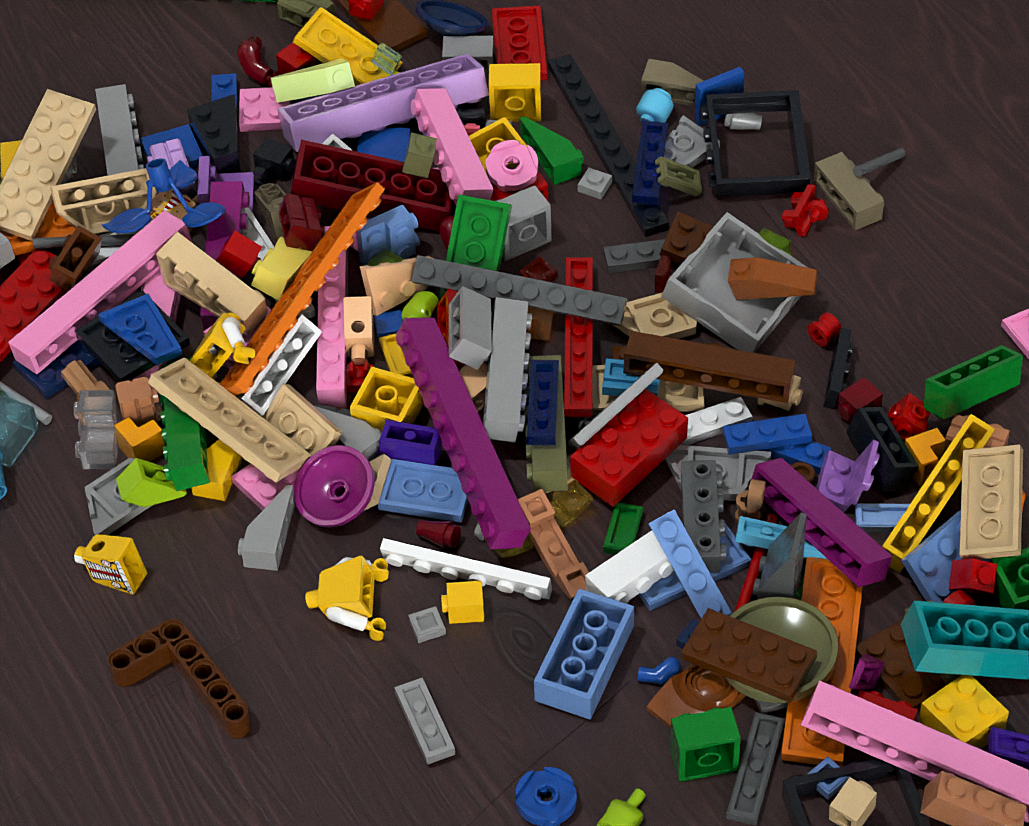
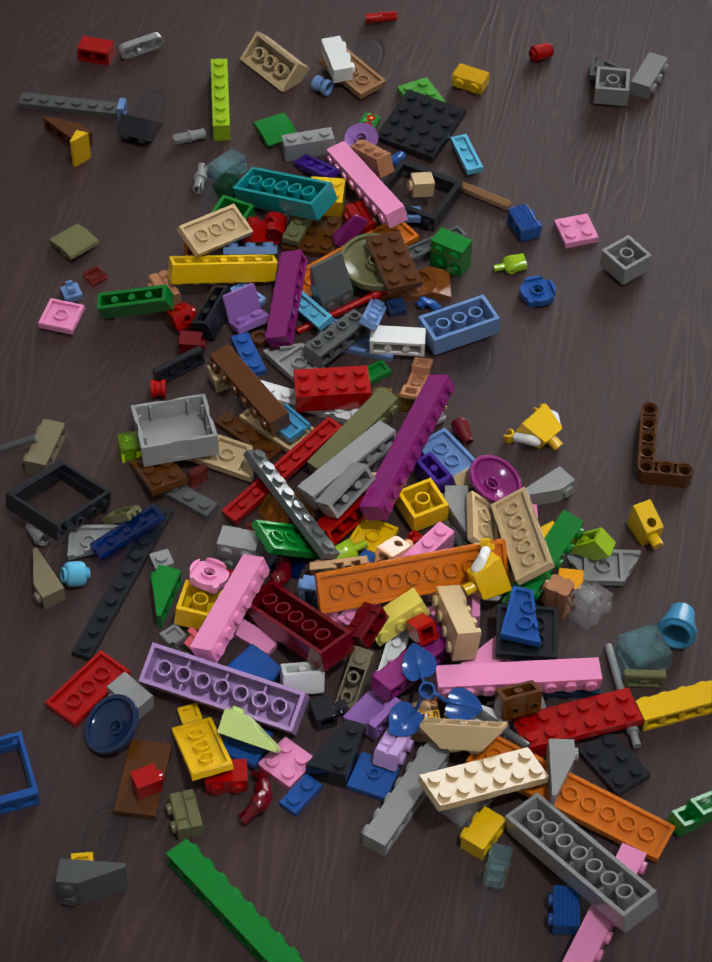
camera: 140 degrees left, 0 degrees up
(80, 378) = (573, 638): medium nougat piece -> none
(386, 58) = (186, 720): clear light blue tile -> none
(419, 155) = (259, 604): olive brick -> none
(424, 721) = (559, 355): light grey plate -> none
(427, 624) = (512, 398): light grey tile -> none
(456, 567) = (472, 406): white plate -> none
(464, 602) = (486, 389): yellow brick -> none
(515, 91) = (139, 632): yellow brick -> none
(543, 402) = (352, 427): clear blue plate -> none
(614, 407) = (321, 397): light grey tile -> none
(725, 83) = (43, 539): blue plate -> none
(751, 500) = (305, 328): medium nougat connector -> none
(767, 434) = (257, 356): blue plate -> none
(769, 279) = (162, 412): dark orange slope -> none
(806, 209) = (79, 451): red hips -> none
(927, 451) = (195, 297): light orange piece -> none

